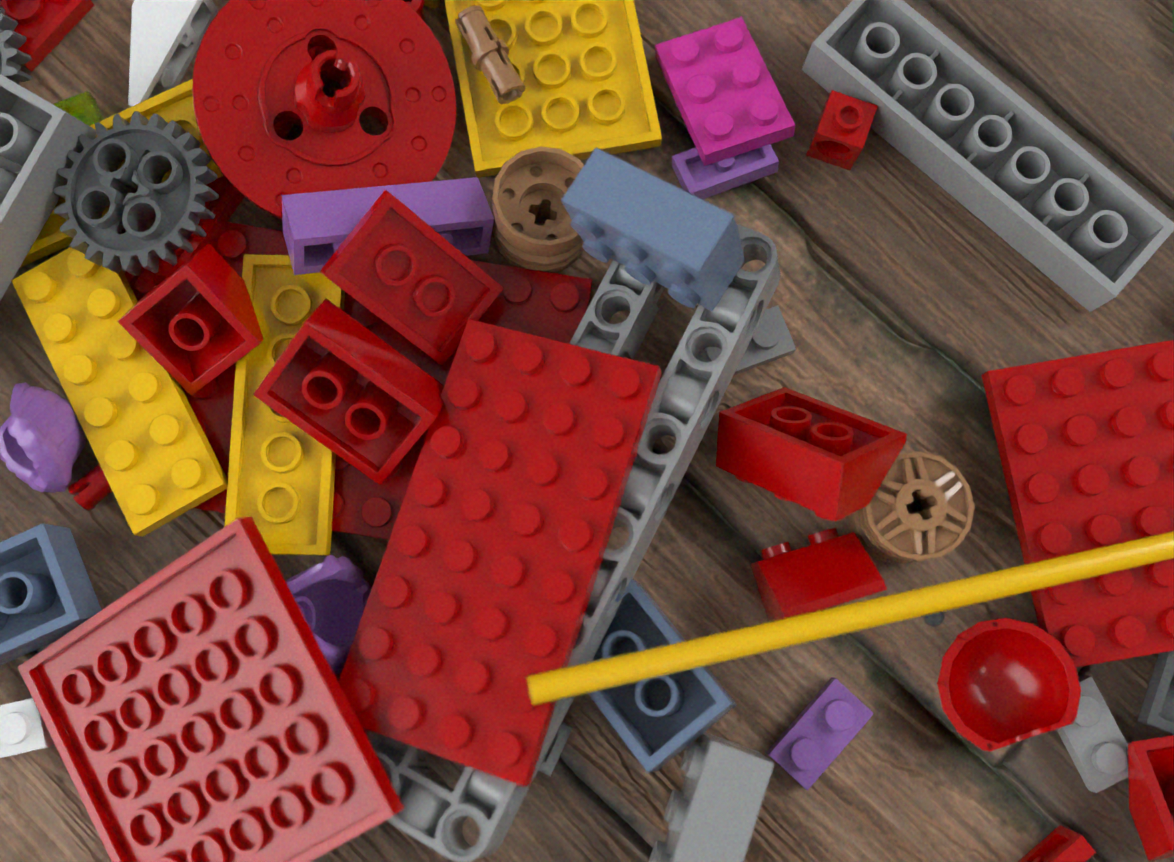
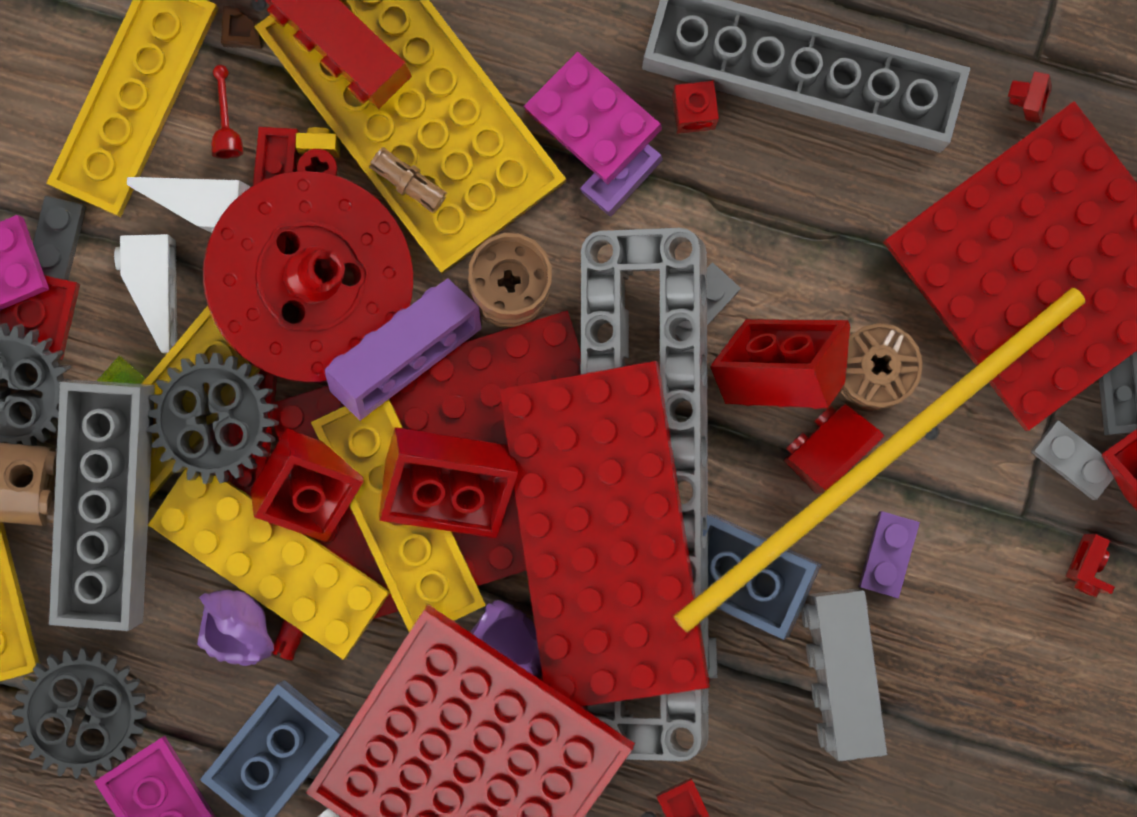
camera: 25 degrees left, 5 degrees up
(411, 277) = (446, 381): red plate -> none
(654, 230) = (605, 269): sand blue brick -> none
(1007, 683) = (998, 457): red cylinder -> none

